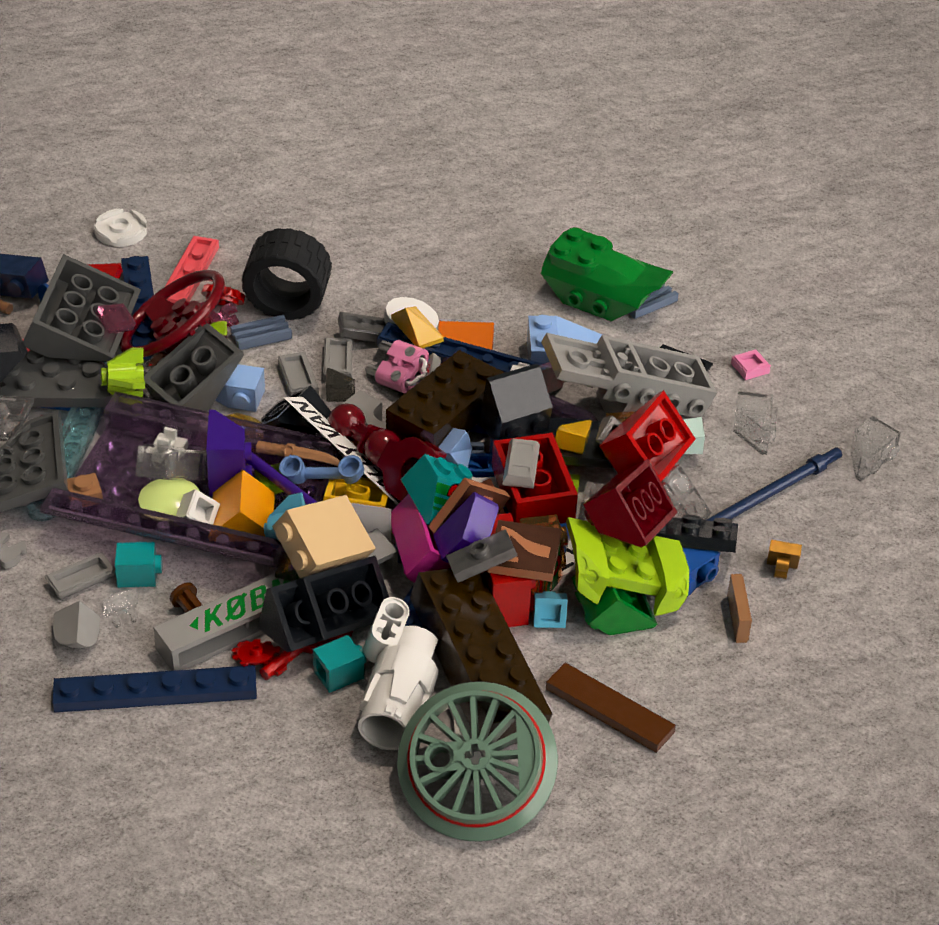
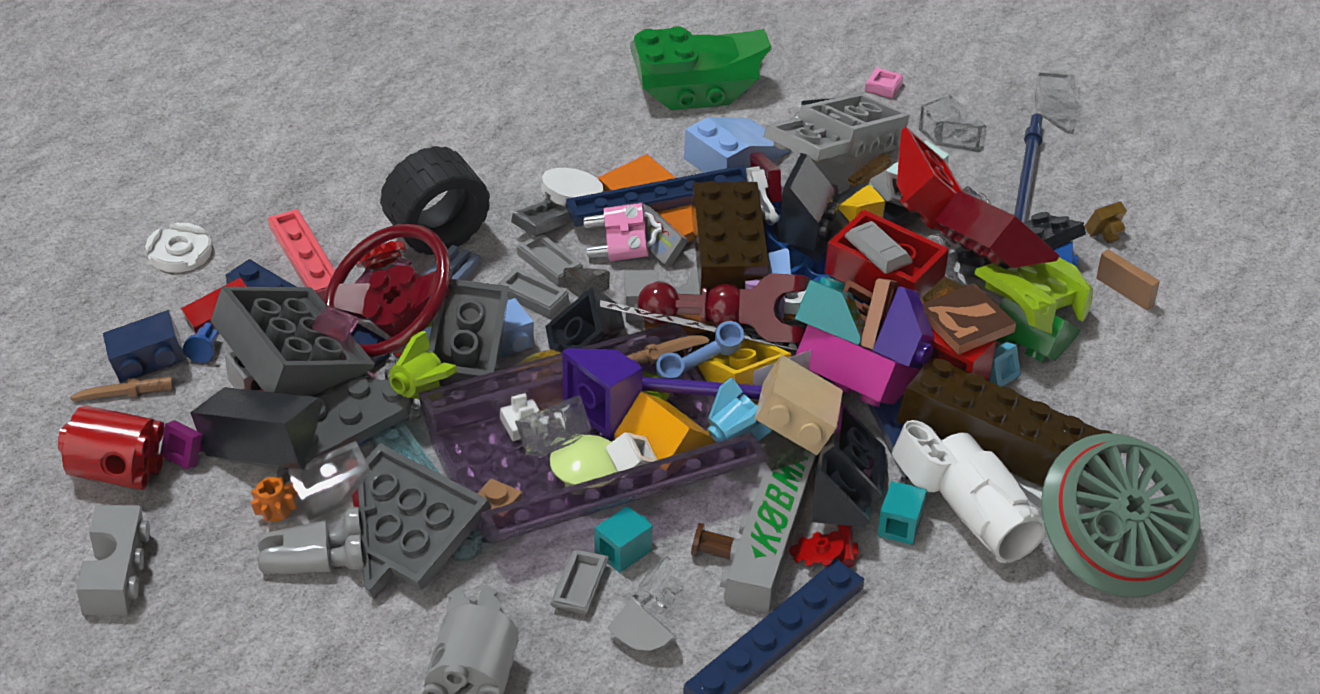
camera: 40 degrees left, 0 degrees up
(417, 327) = (601, 188): yellow slope -> none
(481, 555) = (950, 340): flat silver plate -> none
(610, 707) = (1138, 414): reddish brown tile -> none

